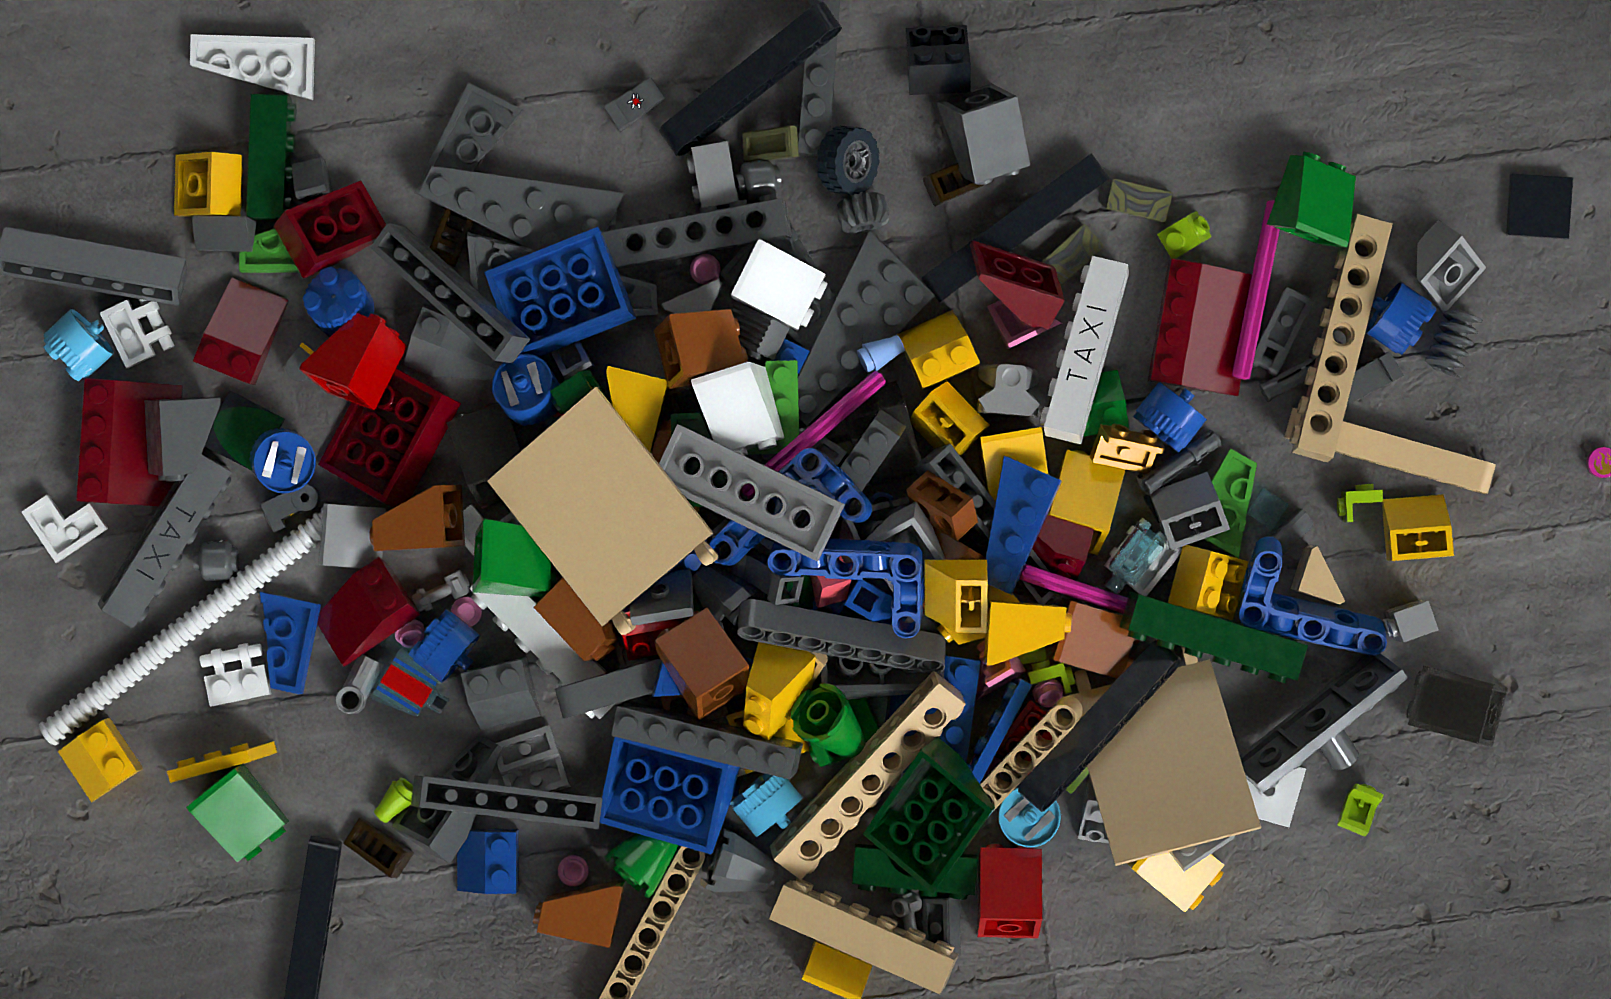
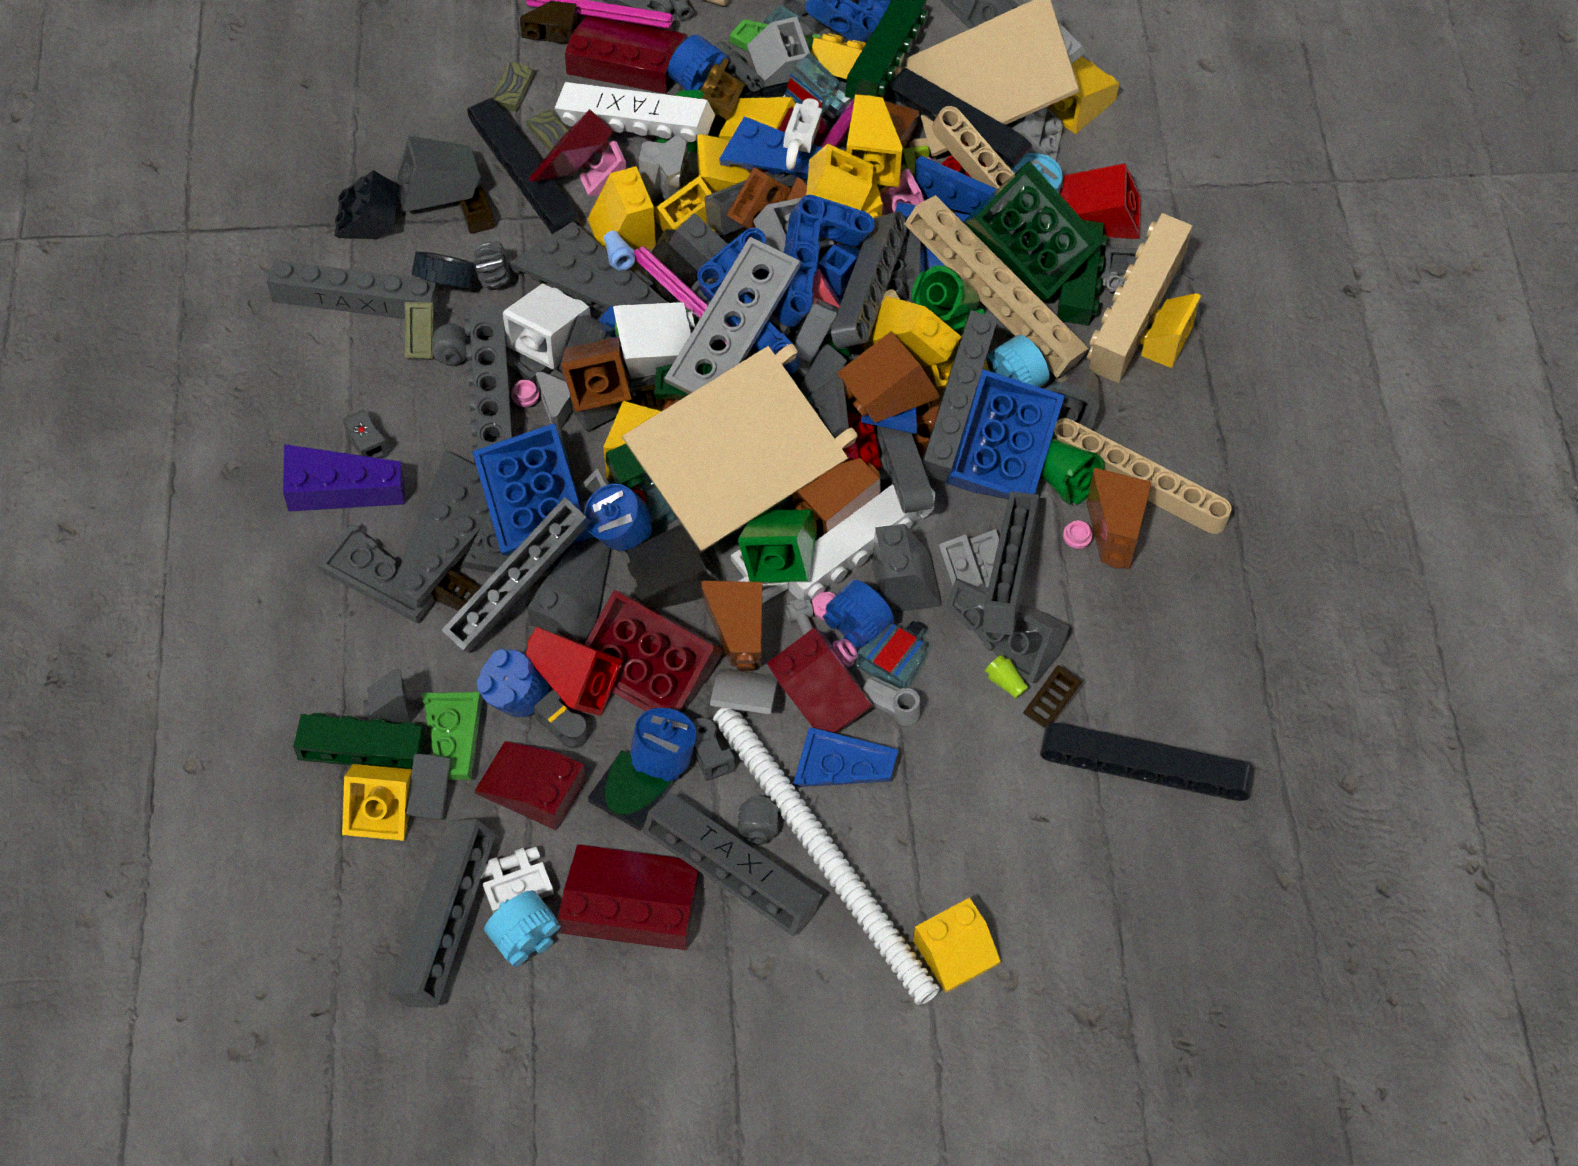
camera: 90 degrees left, 30 degrees down
(60, 534) = (718, 968): white plate -> none
(177, 434) = (628, 832): dark grey slope -> none
(216, 761) = (963, 827): yellow wing -> none
(237, 684) = (885, 814): white plate -> none
(239, 814) = (1014, 813): slope -> none
(266, 61) = (262, 744): white wing -> none
(330, 228) = (440, 686): dark red slope -> none
(489, 862) = (1070, 596): blue slope -> none
(572, 81) = (339, 480): none -> dark purple wedge
(713, 175) = (440, 377): light grey brick -> none
(750, 79) = (357, 333): black beam -> none
(1030, 548) = (801, 130): none -> white piece
(1185, 235) = (546, 55): lime bracket -> none
(1235, 237) = (550, 22): none -> dark brown slope

